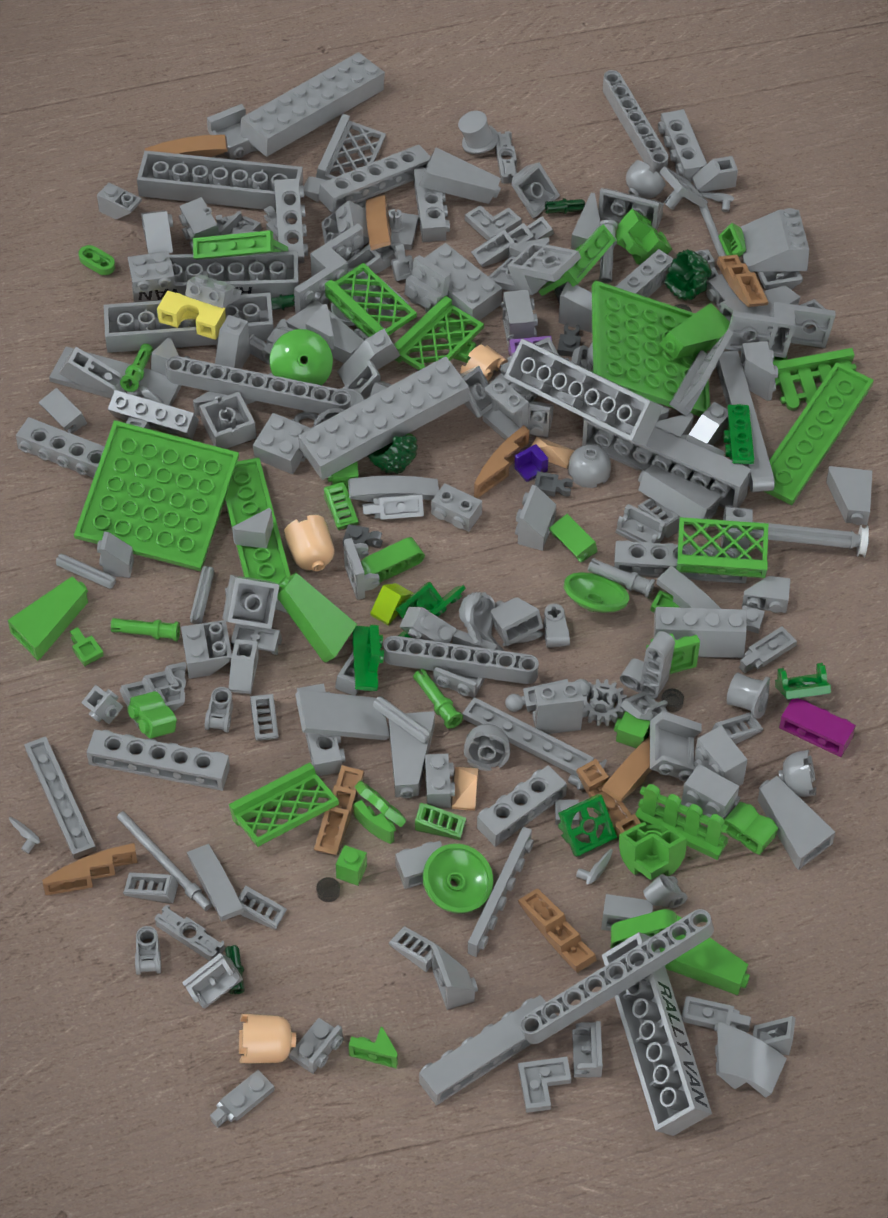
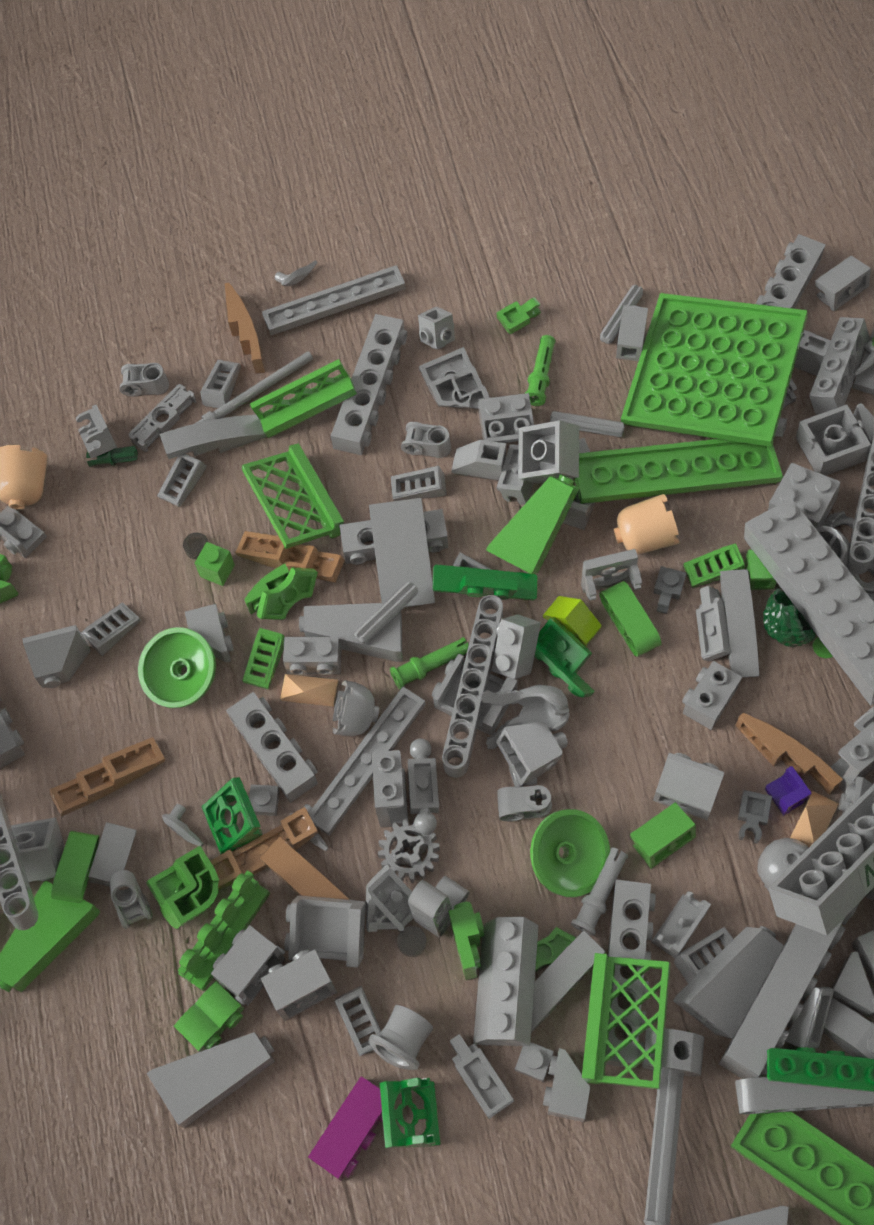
camera: 100 degrees right, 10 degrees up
(48, 617) = (556, 280): bright green slope -> none
(152, 714) = (417, 371): bright green brick -> none
(183, 803) = (306, 401): none -> bright green fence
(255, 530) = (657, 462): light grey slope -> none
(497, 898) = (171, 721): light grey plate -> none
(631, 730) = (361, 875): bright green brick -> none
(799, 773) = (274, 1090): light grey cylinder -> none

